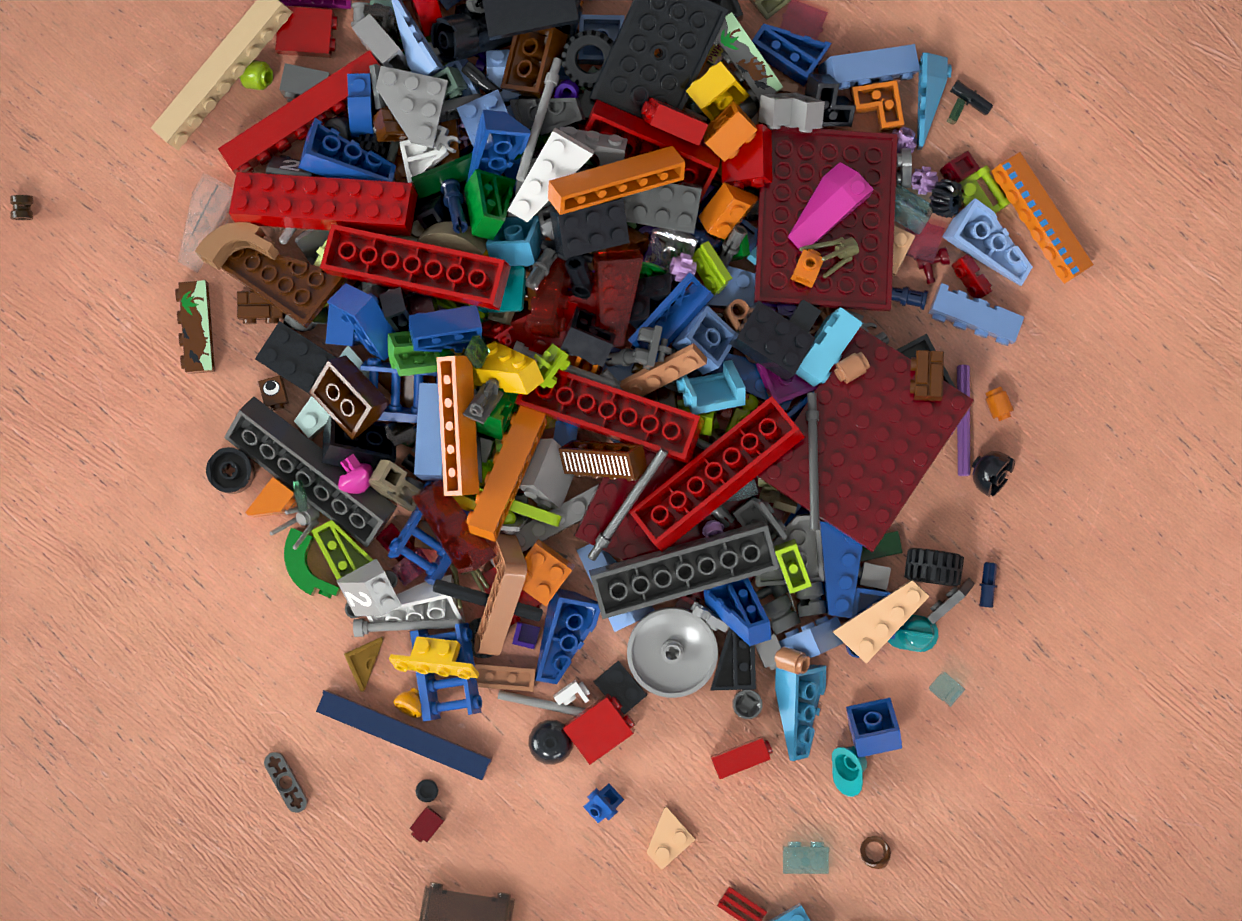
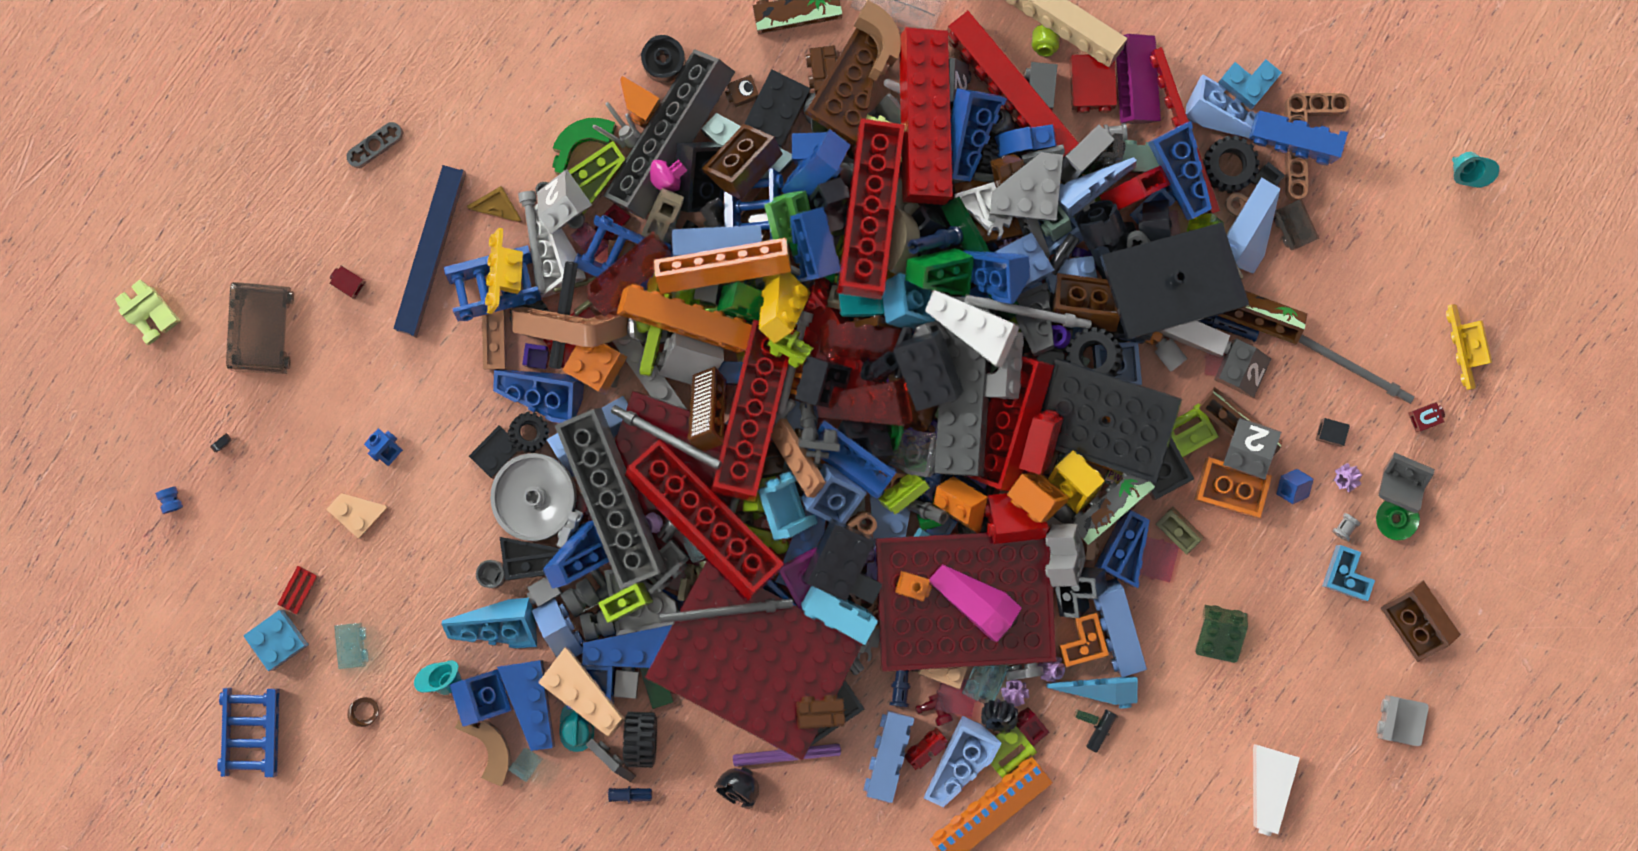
camera: 80 degrees right, 0 degrees up
(300, 496) = (644, 126): clear green tile -> none
(409, 703) = (460, 252): light orange brick -> none
(427, 790) = (379, 278): black tile -> none
(477, 351) = (795, 276): clear green tile -> none
(479, 457) = (696, 290): black piece -> none
(484, 401) = (747, 288): dark grey hinge -> none
(540, 703) = (473, 378): light grey bar -> none
(541, 268) = (882, 328): dark grey axle -> none
(550, 742) = (437, 391): black cylinder -> none
(568, 693) = (484, 402): white bracket -> none
(599, 728) = (454, 435): red brick -> none
(604, 664) = (533, 420): none -> black tyre
(616, 180) = (974, 390): orange brick -> none
(682, 266) = (901, 465): lavender gear -> none
(741, 757) = (439, 573): red brick -> none
(792, 660) = (535, 611): nougat brick -> none
(845, 249) = (935, 620): olive plant -> none
(851, 367) = (820, 638): nougat brick -> none
(882, 677) = (530, 702): none -> blue wedge
(926, 716) = (497, 748): none -> medium nougat arch
(999, 403) = (805, 787): orange brick -> none

